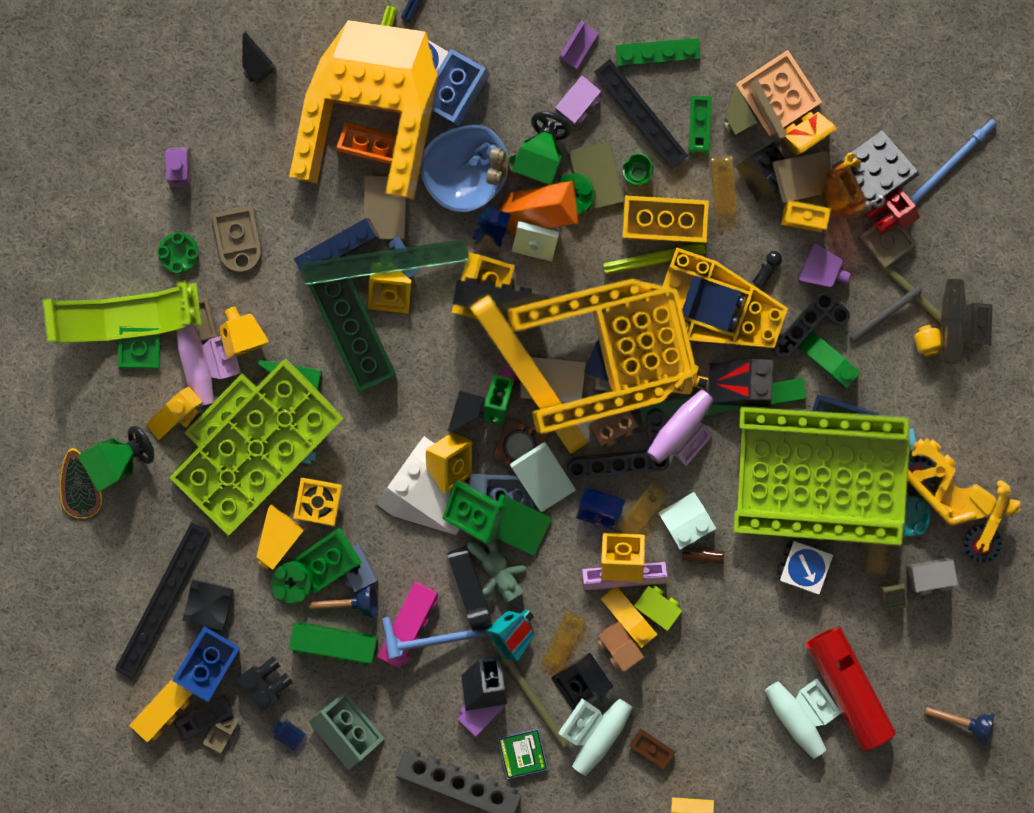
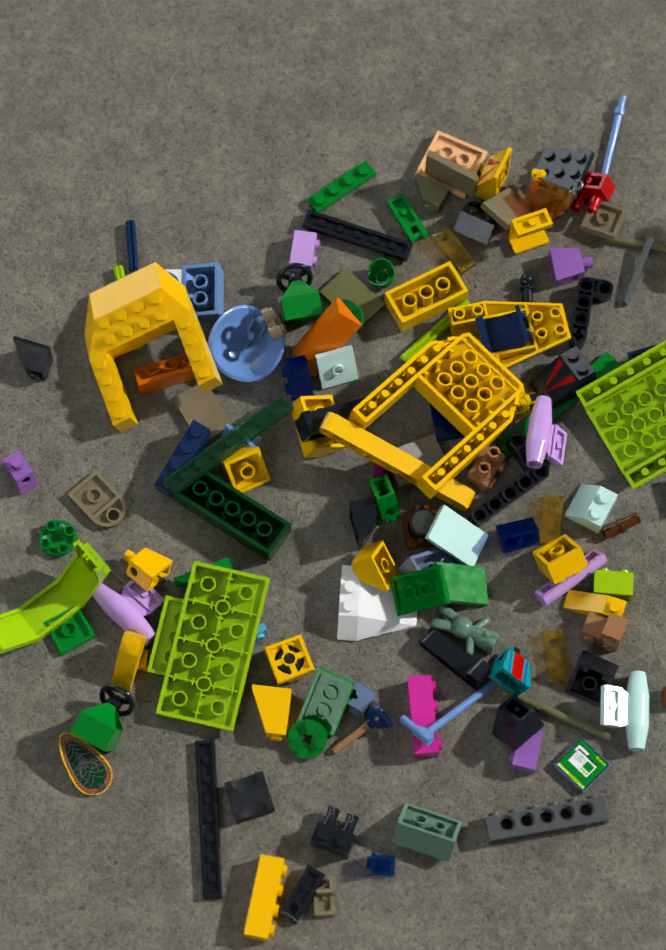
camera: 30 degrees left, 20 degrees down
(205, 663) = (277, 840): blue slope -> none
(333, 642) = (372, 763): green brick -> none
(578, 45) = (278, 215): medium lavender panel -> none
(829, 359) = (621, 327): green slope -> none

